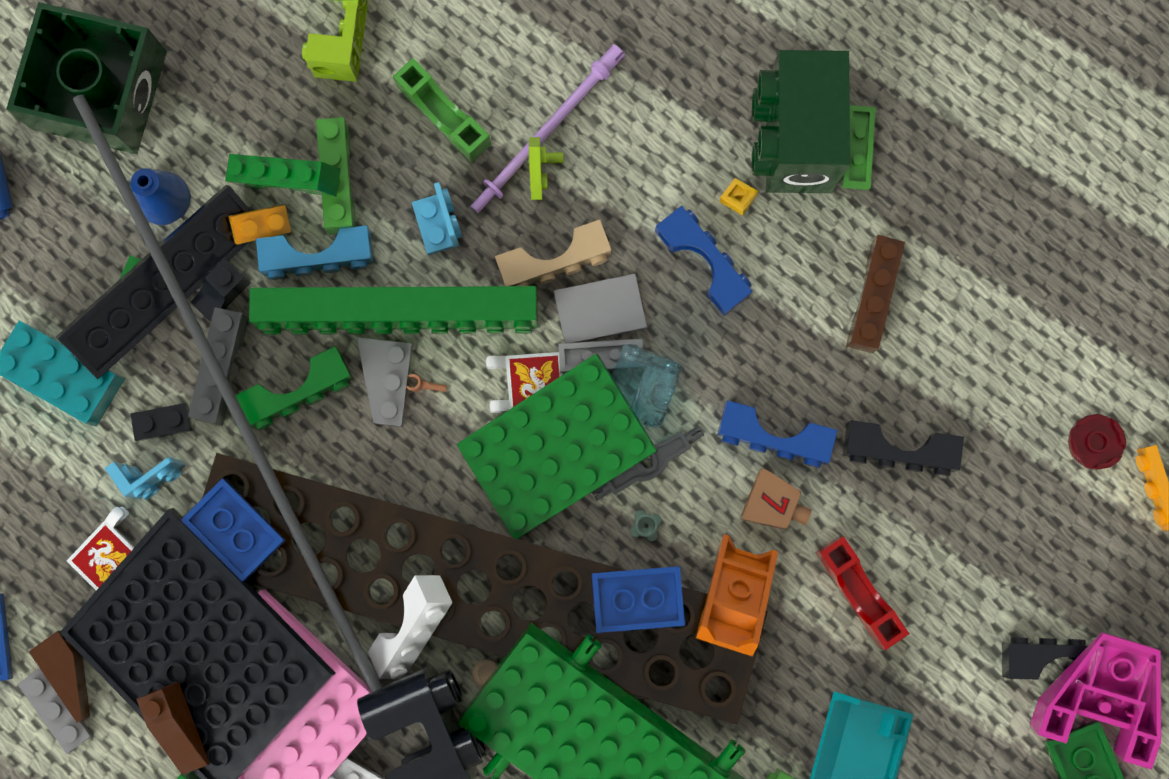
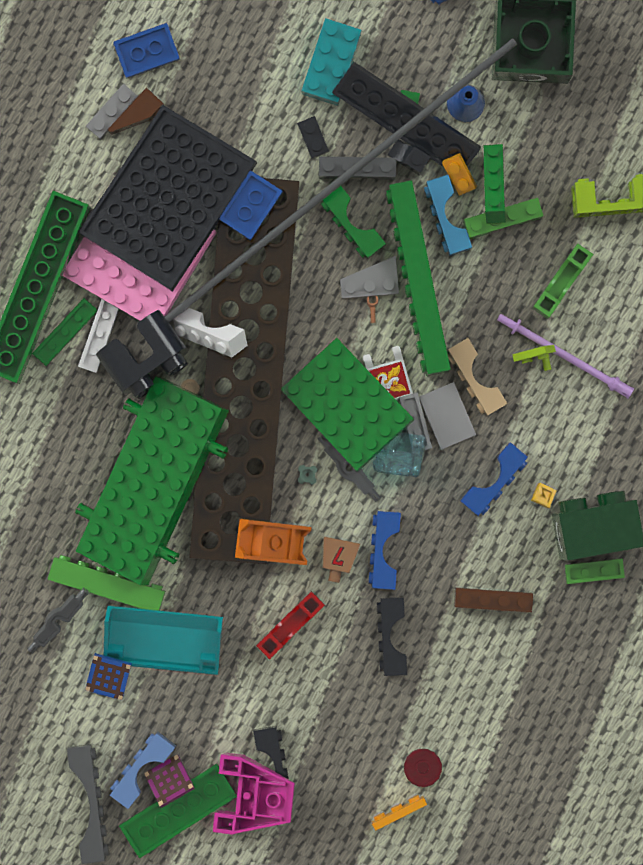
camera: 80 degrees right, 5 degrees up
(102, 550) = (219, 119): flag -> none
(136, 485) = (272, 126): medium azure bracket -> none
(173, 727) = (117, 194): reddish brown slope -> none
(434, 220) = (484, 292): medium azure bracket -> none
(638, 599) = (257, 476): blue plate -> none

